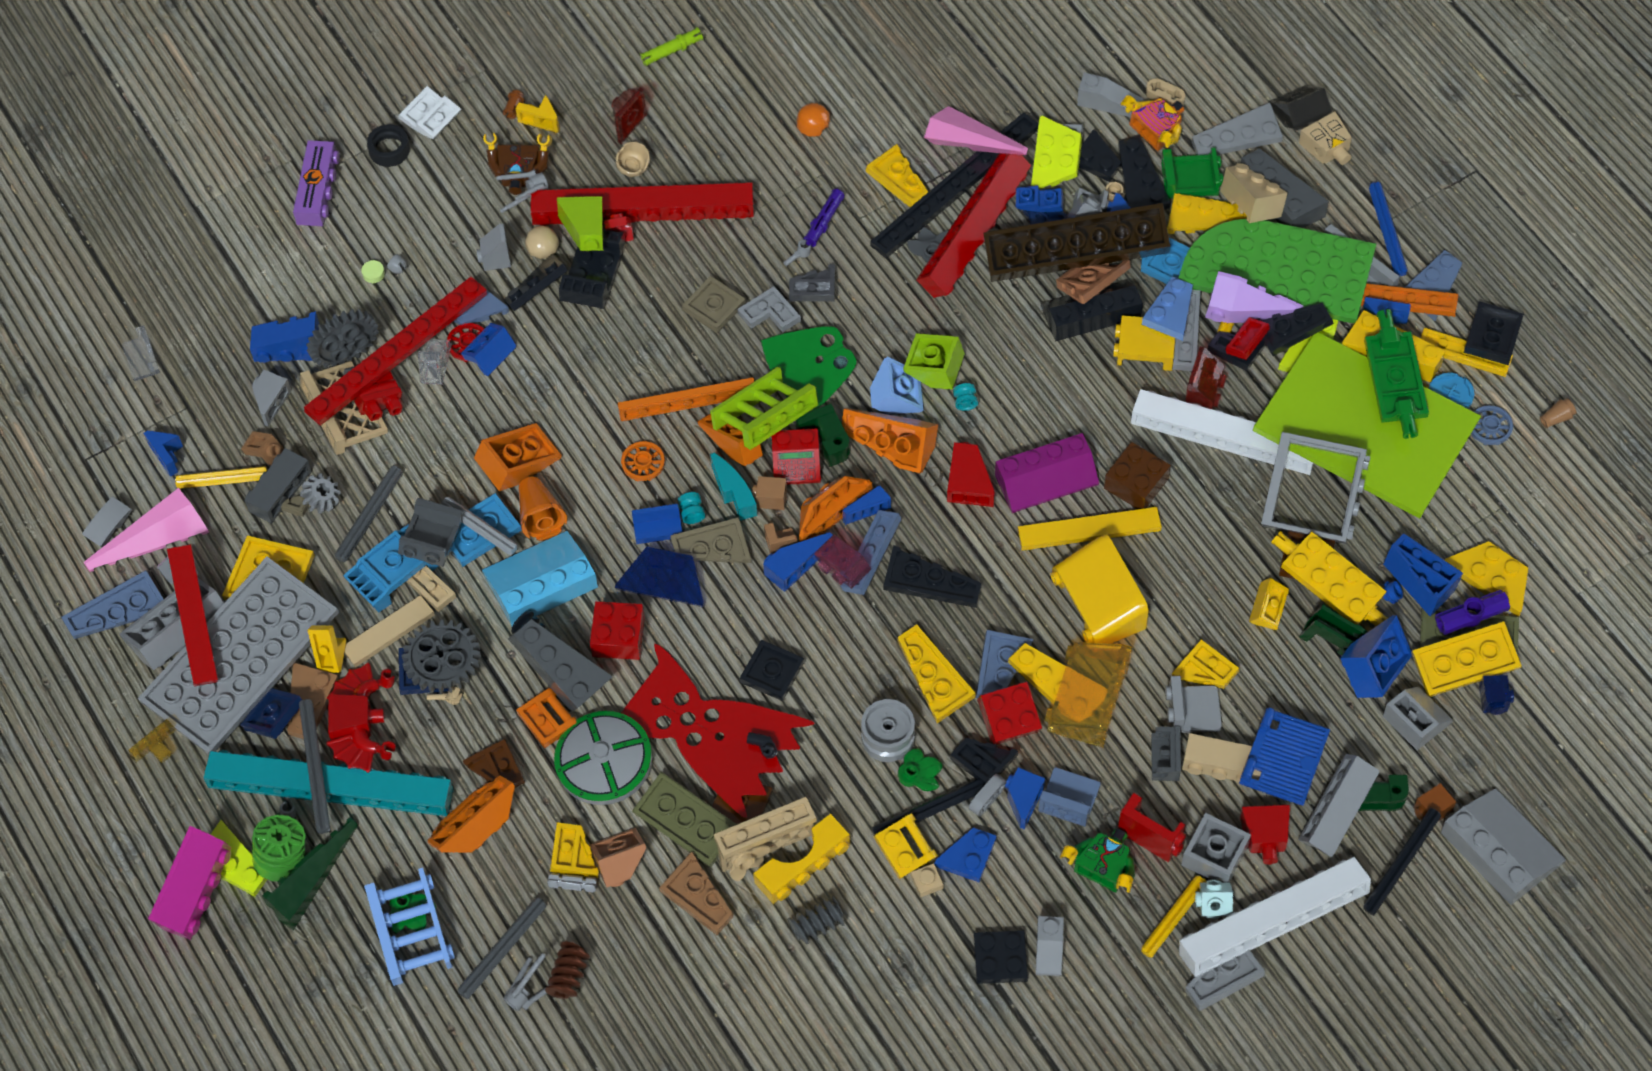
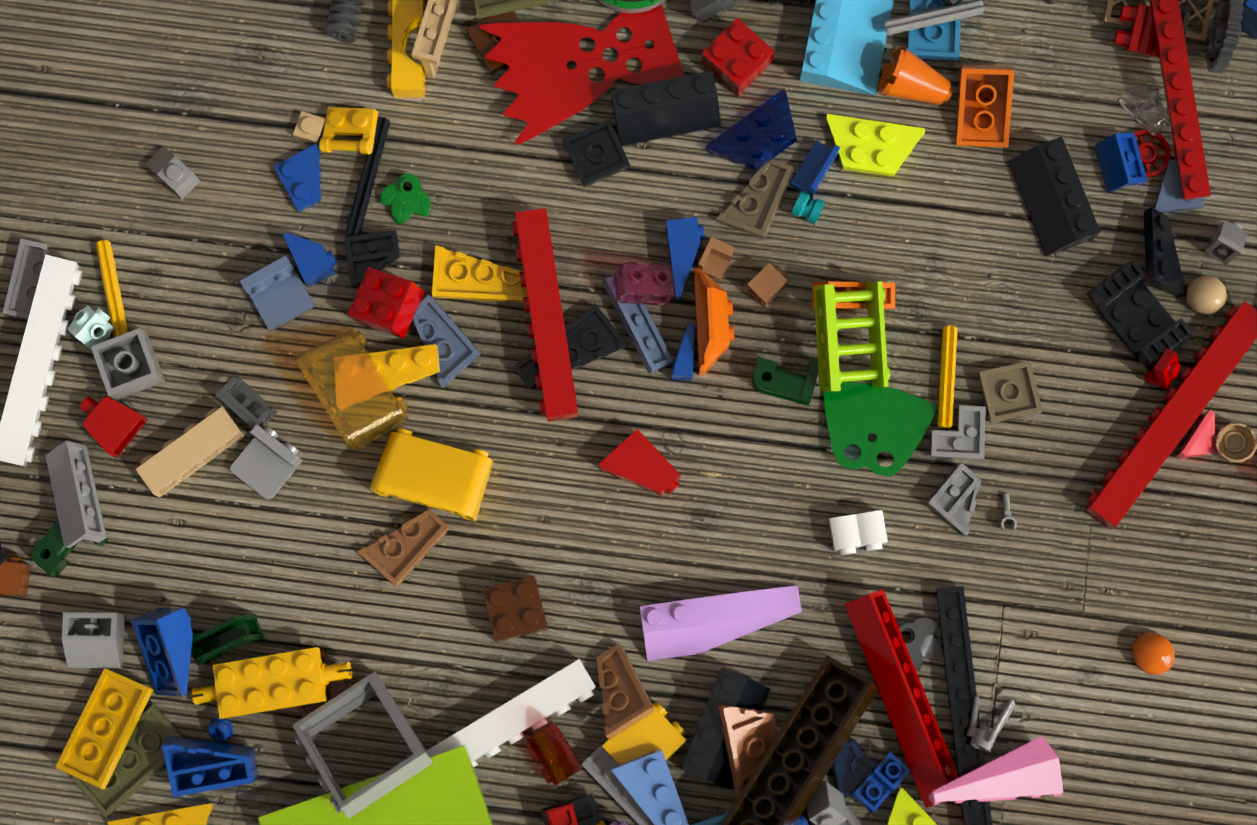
camera: 130 degrees right, 20 degrees up
(549, 369) = (1054, 196): none -> black slope
(583, 220) = (1187, 331): lime slope -> none
(606, 504) = (871, 144): none -> neon yellow wing
(642, 461) = (893, 208): orange wheel -> none
(647, 180) = (1201, 439): none -> coral slope
(680, 400) = (924, 288): orange tile -> none
(695, 650) = (666, 108): none -> black slope
(733, 488) = (800, 258): teal slope -> none
(735, 347) = (947, 376): none -> yellow axle
(765, 743) = (526, 88): black arm -> none
(796, 456) = (784, 334): red slope -> none
(820, 223) = (1012, 540): dark purple pin -> none
(887, 730) = (460, 180): light grey wheel -> none
(891, 323) = (858, 531): none -> white brick
(895, 175) = (1020, 676): yellow wing -> none
(895, 390) = (782, 478): light blue slope -> none
(897, 438) = (730, 440): orange wedge -> none
(920, 603) = (546, 315): none -> red brick
(935, 360) = (783, 532): lime slope -> none
(956, 161) = (984, 736): none -> light grey plant
(965, 396) = (724, 531): teal wheel -> none
(987, 795) = (336, 231): light grey beam -> none
(1000, 957) = (199, 130): black plate -> none
(1032, 367) = (711, 621): none -> lavender wedge
(1046, 473) = (586, 535): magenta slope -> none
(1089, 528) = (505, 528): yellow tile -> none
(1103, 860) = (199, 272): green torso -> none
(1127, 374) = (622, 692): none -> medium nougat wing
(1150, 833) = (186, 320): red panel -> none
(1165, 577) = (403, 549): none -> medium nougat wing
(1206, 667) = (292, 508): yellow wing -> none
(1269, 604) = (305, 616): yellow slope -> none
(1285, 756) = (150, 489): blue window -> none
(1461, 617) = (129, 790): dark purple piece -> none
(1495, 694) = (54, 724): clear blue brick -> none

